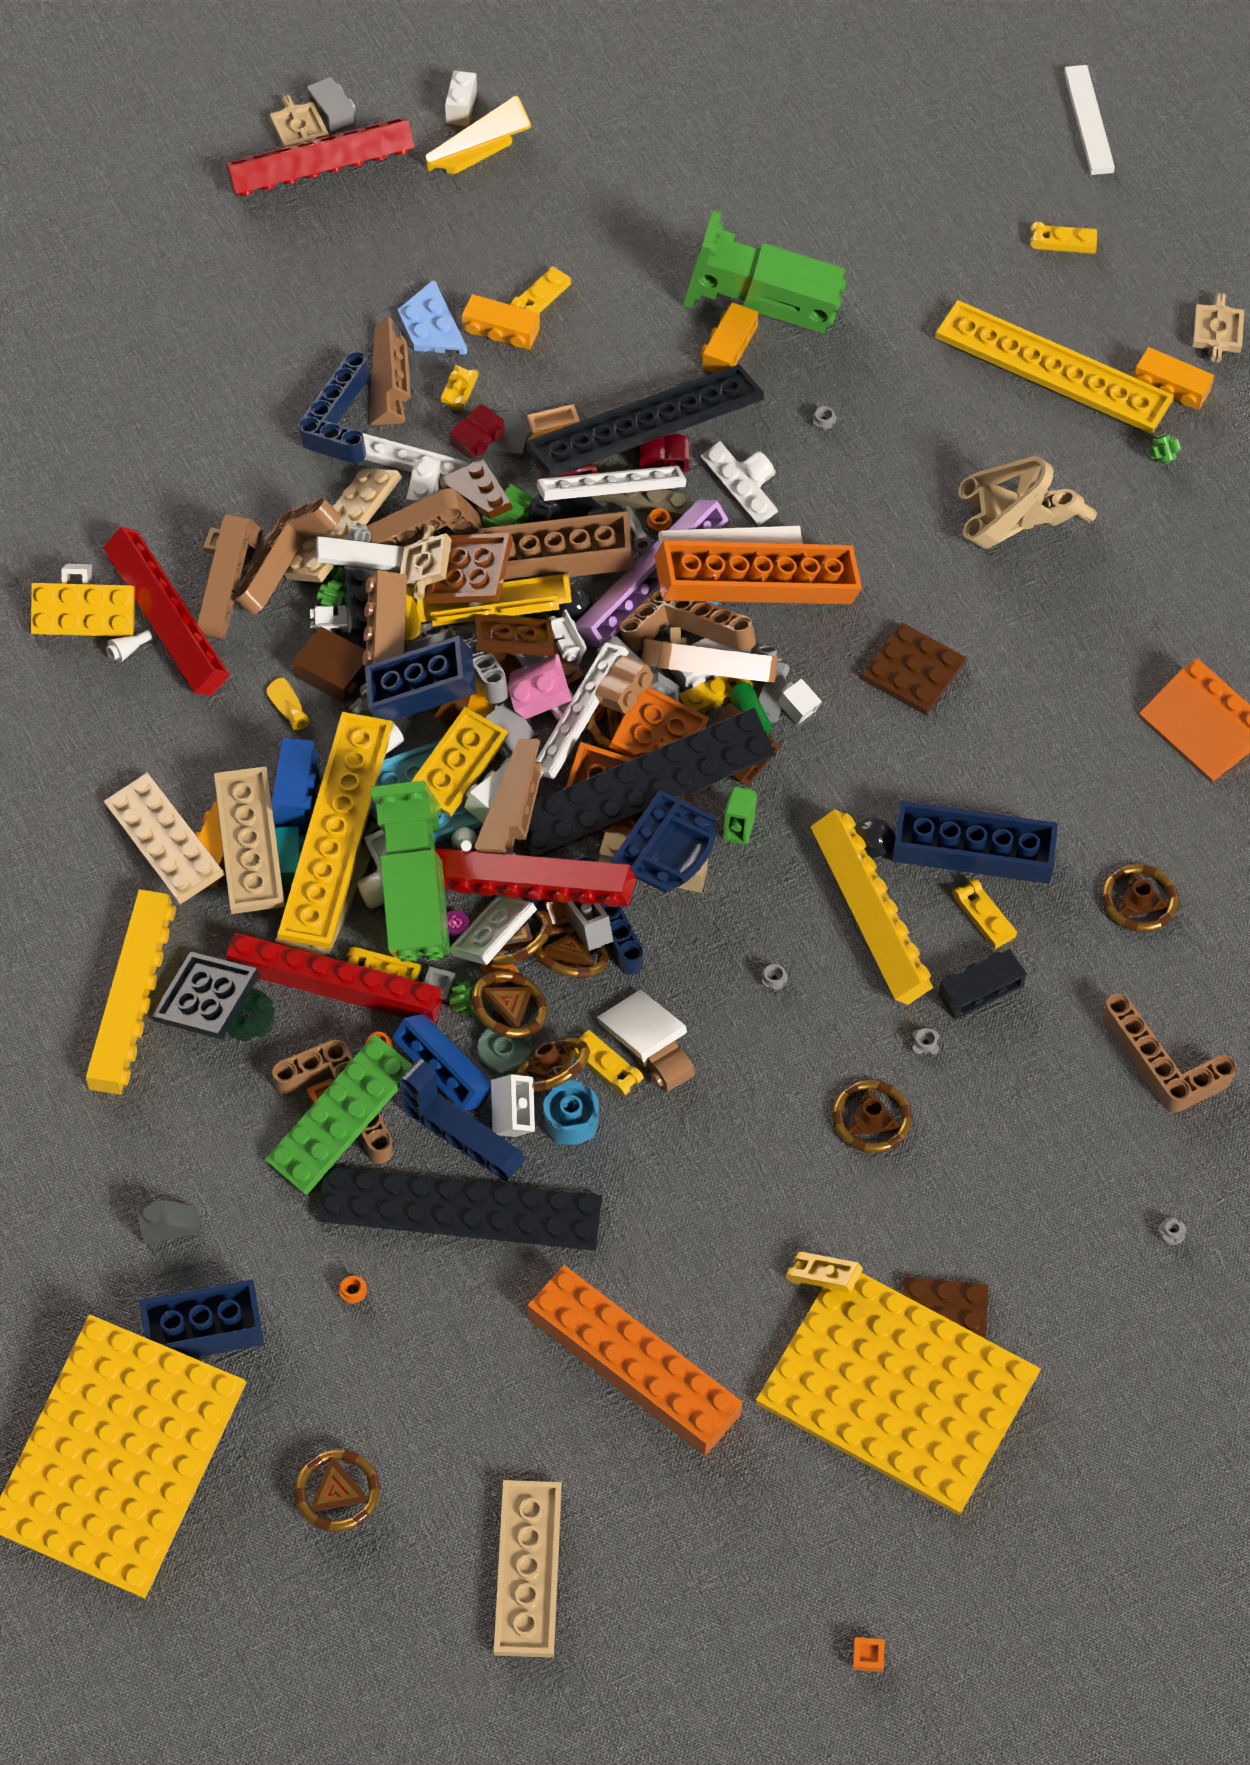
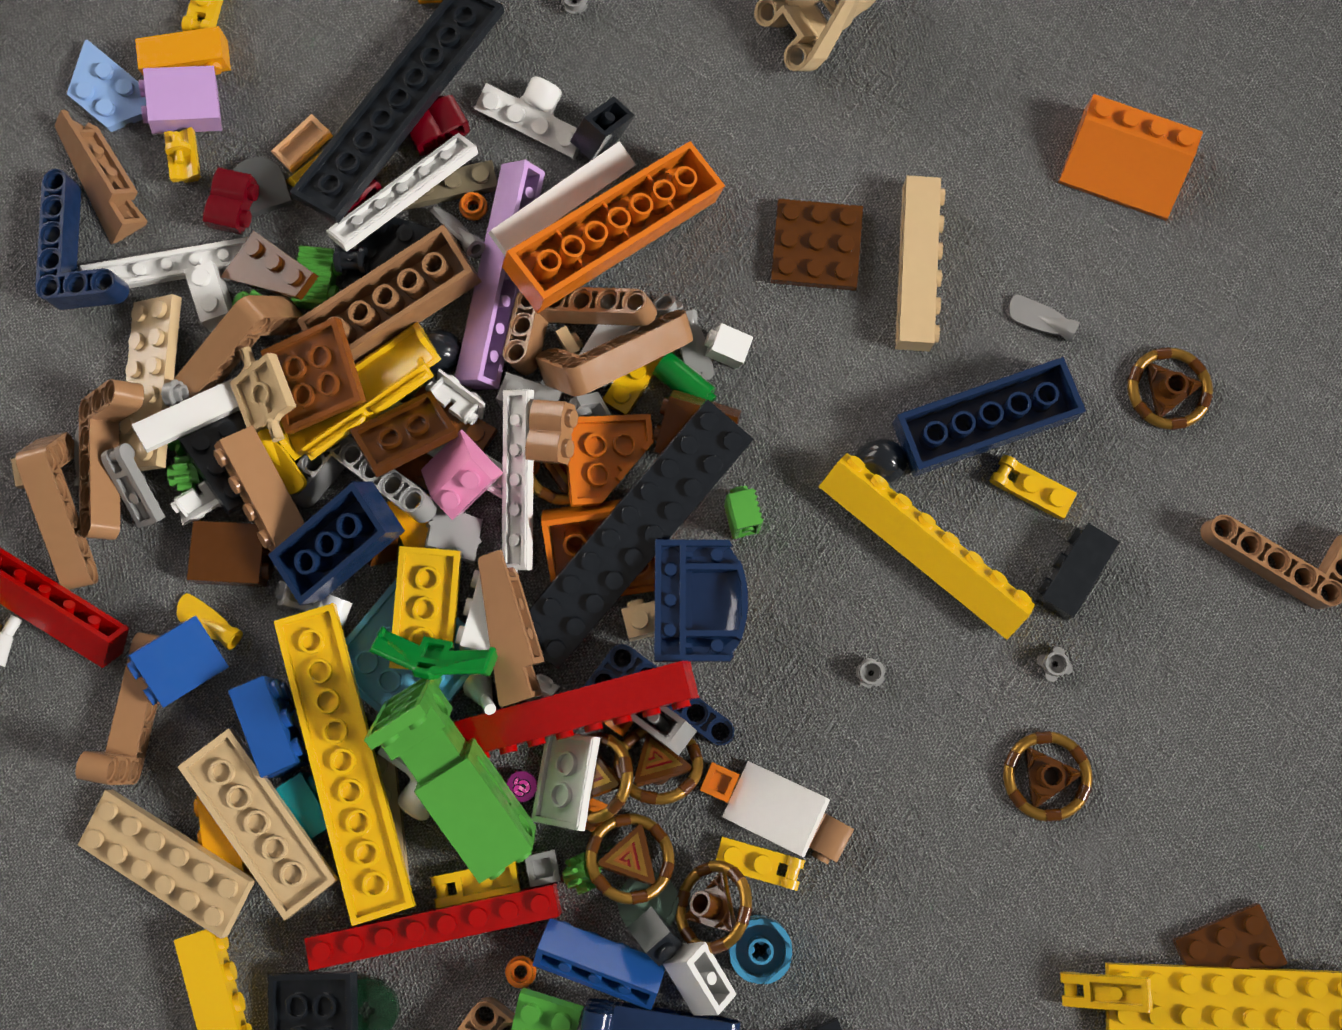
camera: 25 degrees left, 20 degrees up
(174, 753) = (128, 735): none -> medium nougat beam
(253, 710) = (176, 662): none -> blue brick
(290, 583) = (132, 485): none -> light grey plate
(446, 788) = (432, 656): none -> green plate
(481, 349) = (180, 99): none -> lavender brick
(497, 1058) = (655, 936): none -> black brick
(609, 992) = (719, 782): none -> orange plate
(790, 508) = (602, 128): none -> black brick
(986, 716) = (919, 264): none -> tan brick
(1065, 801) = (1041, 318): none -> light grey piece

